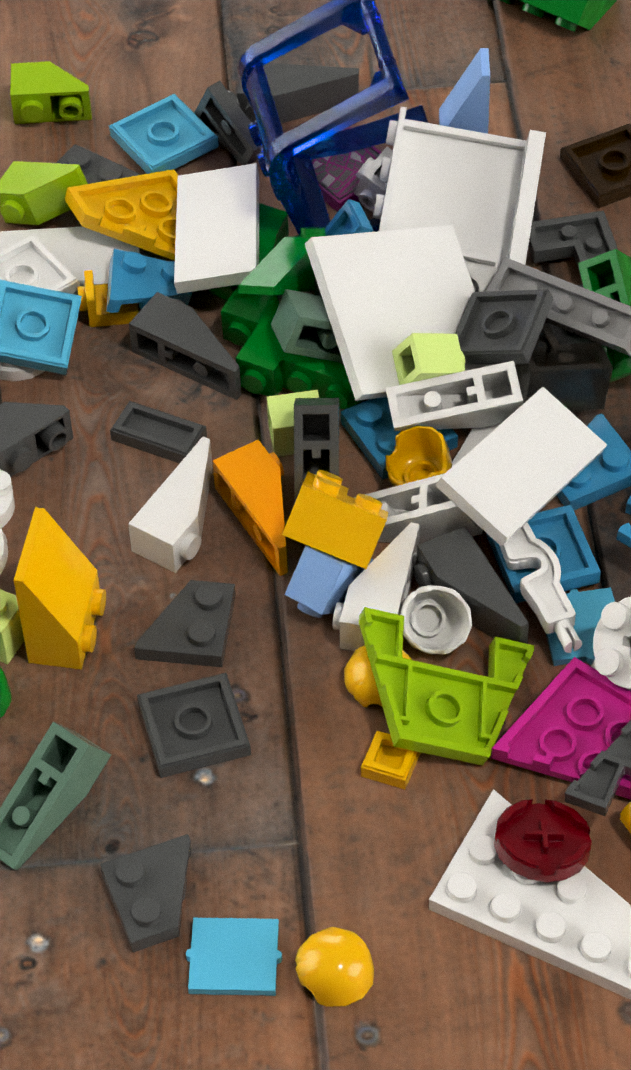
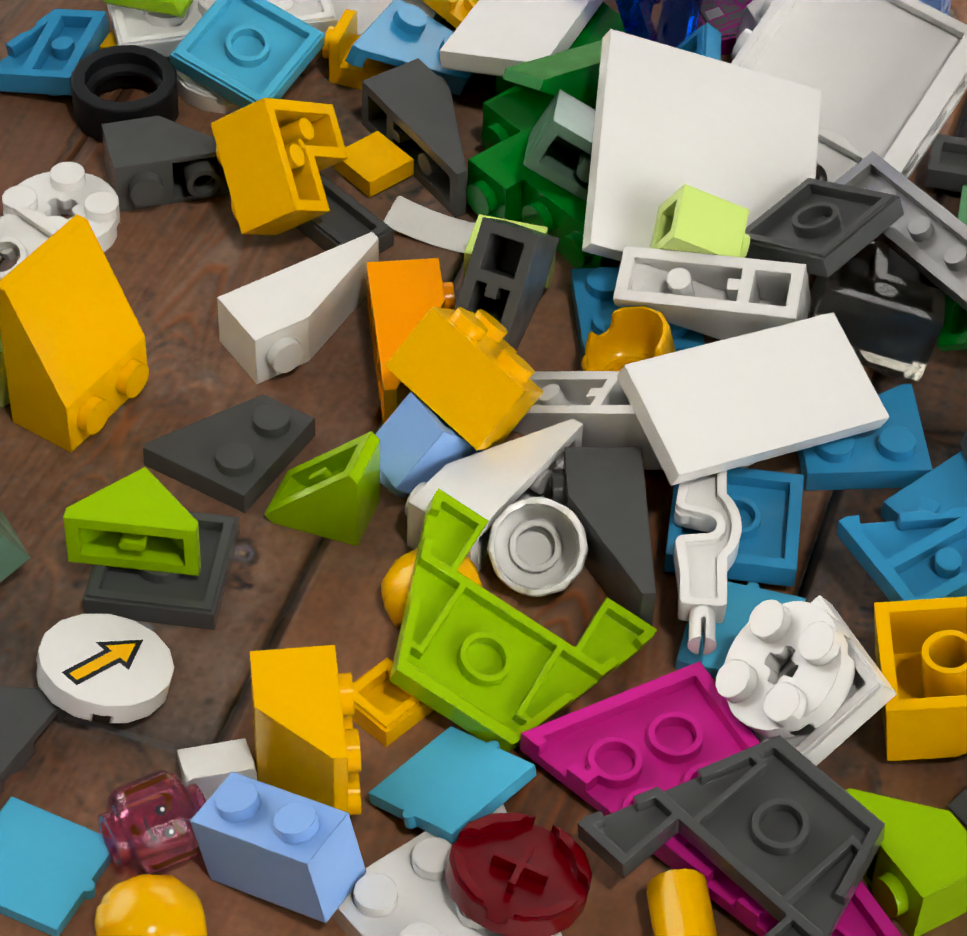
camera: 20 degrees right, 5 degrees down
(109, 411) = (274, 162): none -> yellow brick
(161, 380) = (375, 164): none -> yellow tile
(174, 707) = (133, 527): none -> lime slope
(204, 809) = (104, 667): none -> white tile
(230, 412) = (429, 225): none -> white sticker
(275, 632) = (332, 492): none -> lime slope
(301, 898) = (150, 822): none -> clear pink head
(314, 849) = (214, 762): none -> white slope
(368, 806) = (301, 726): none -> yellow slope
(390, 881) = (279, 846): none -> light blue brick
(465, 798) = (452, 783): none -> medium azure piece

